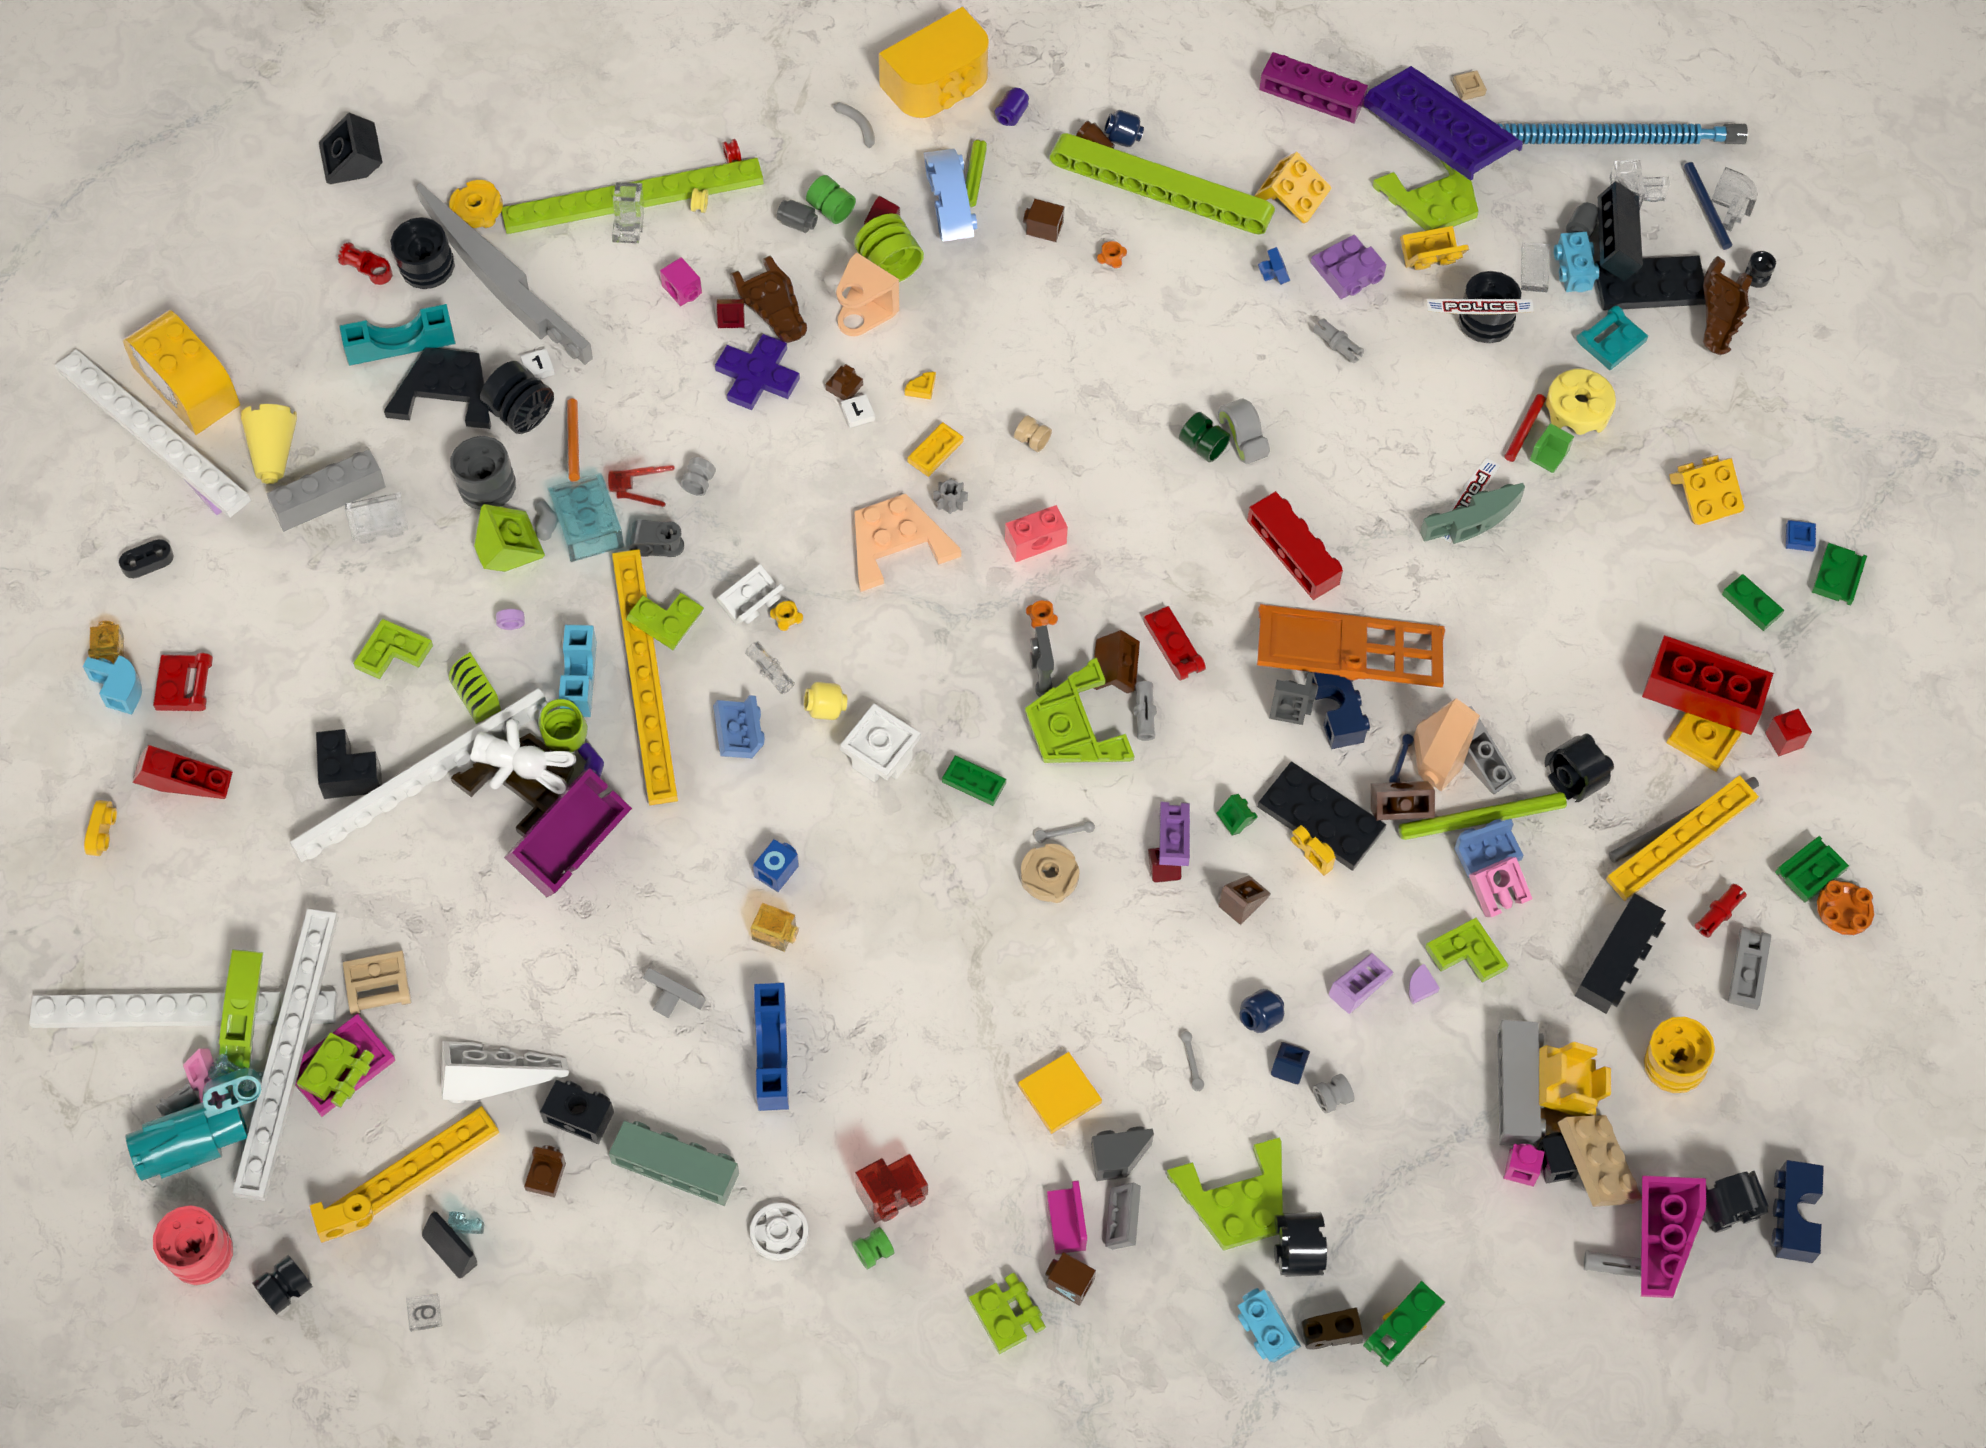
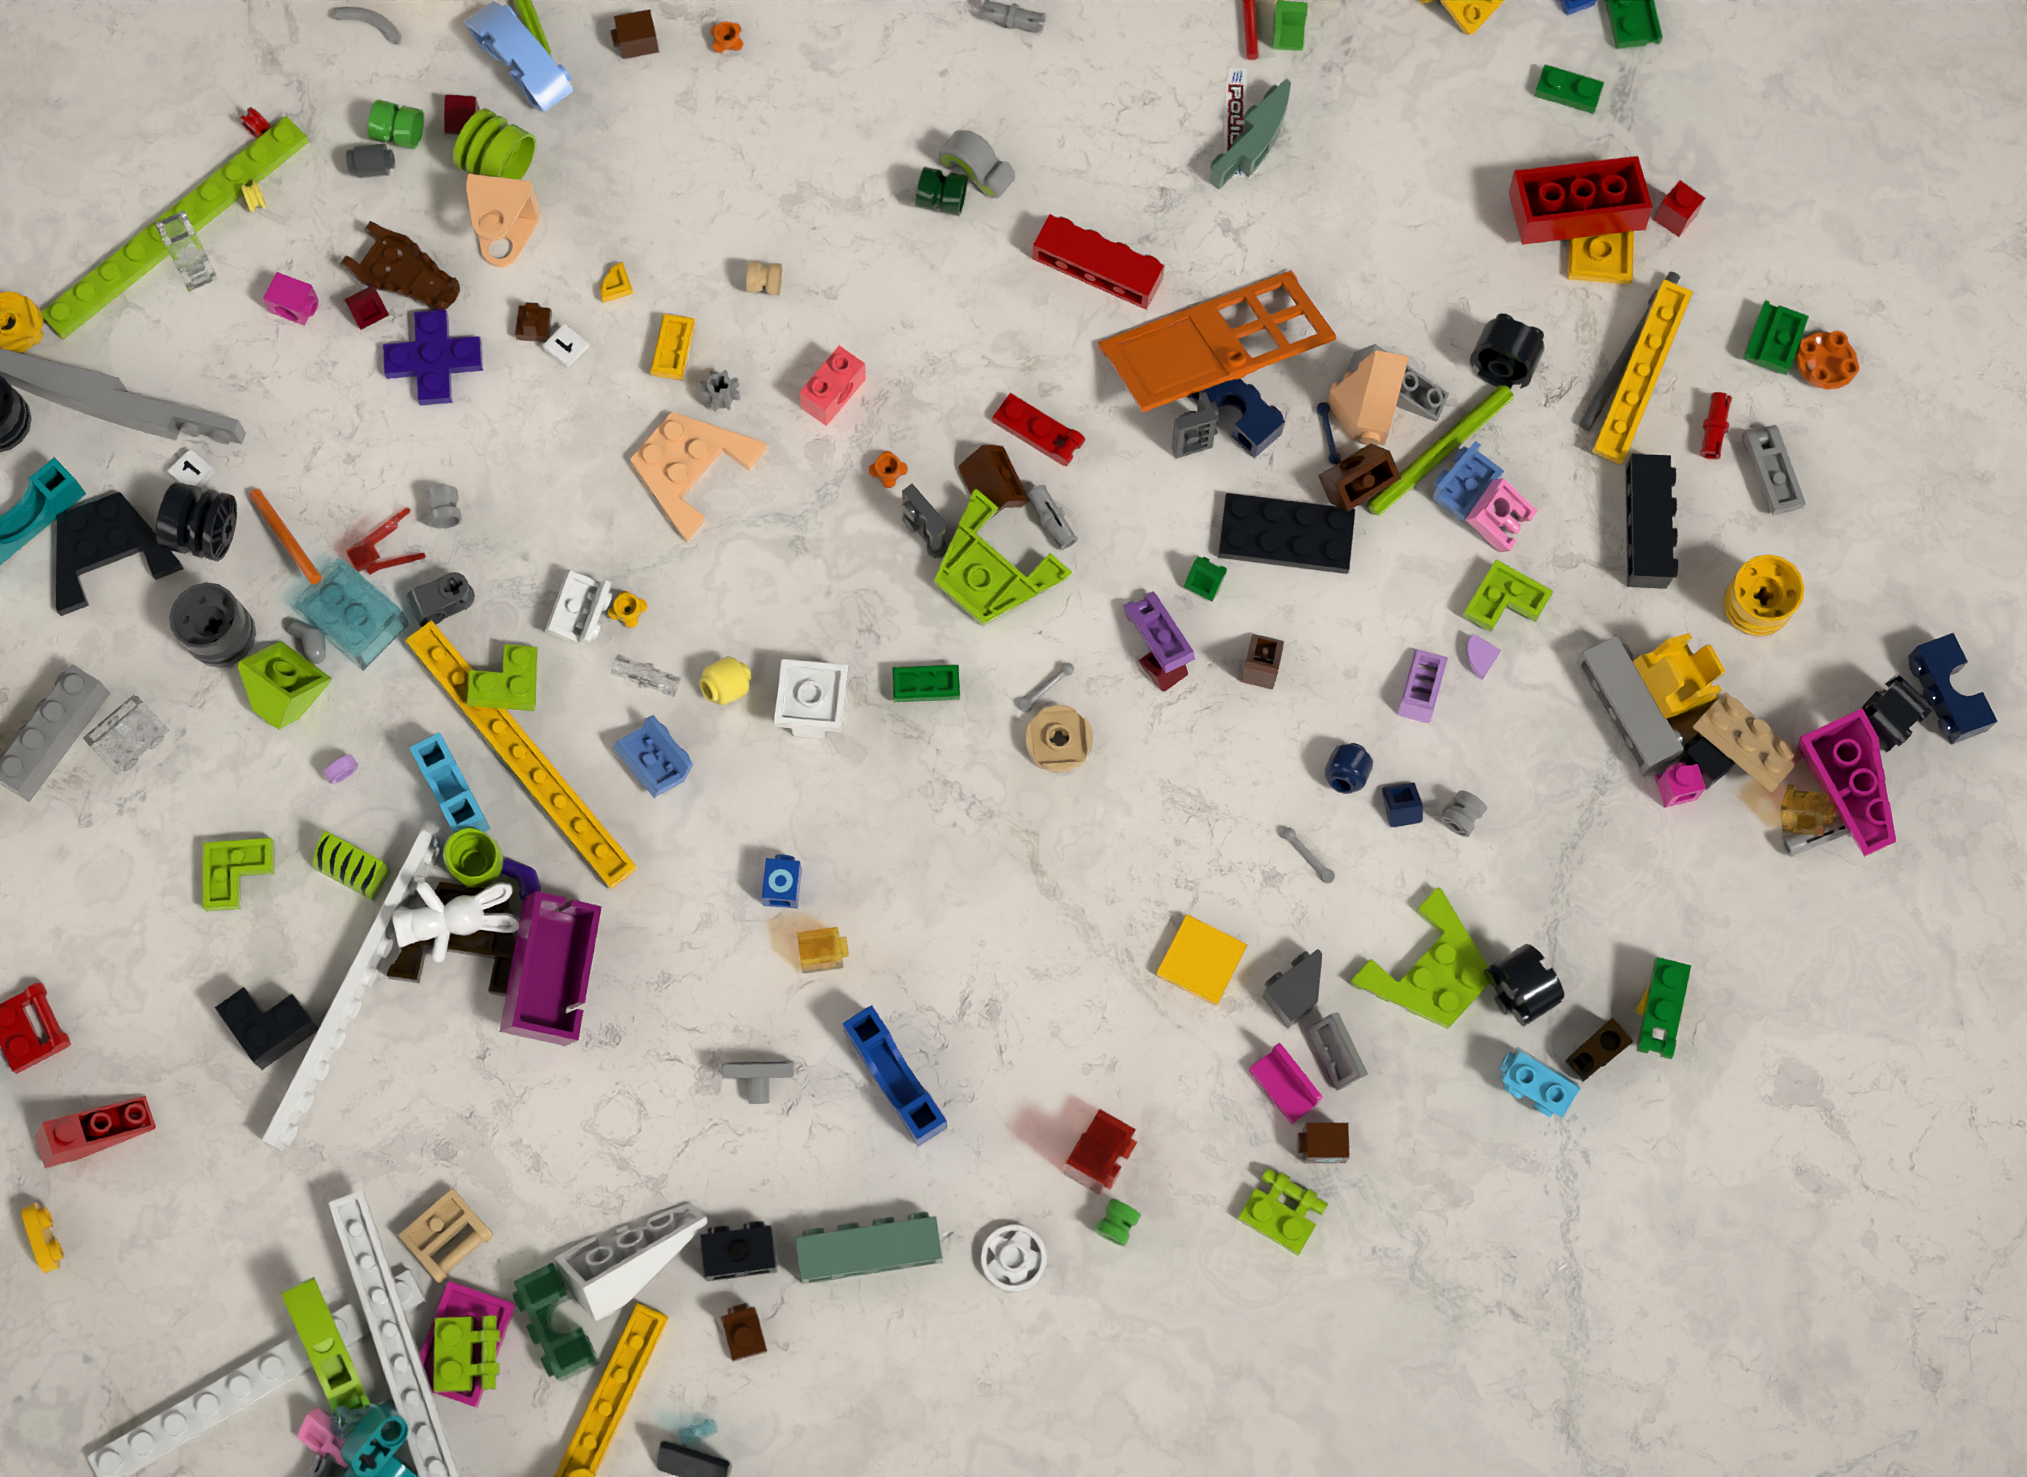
camera: 30 degrees left, 10 degrees up
(415, 1062) = (540, 1295): none -> clear green arch
(1317, 853) = (1305, 575): yellow plate -> none
(1614, 1238) = (1806, 812): none -> clear yellow brick

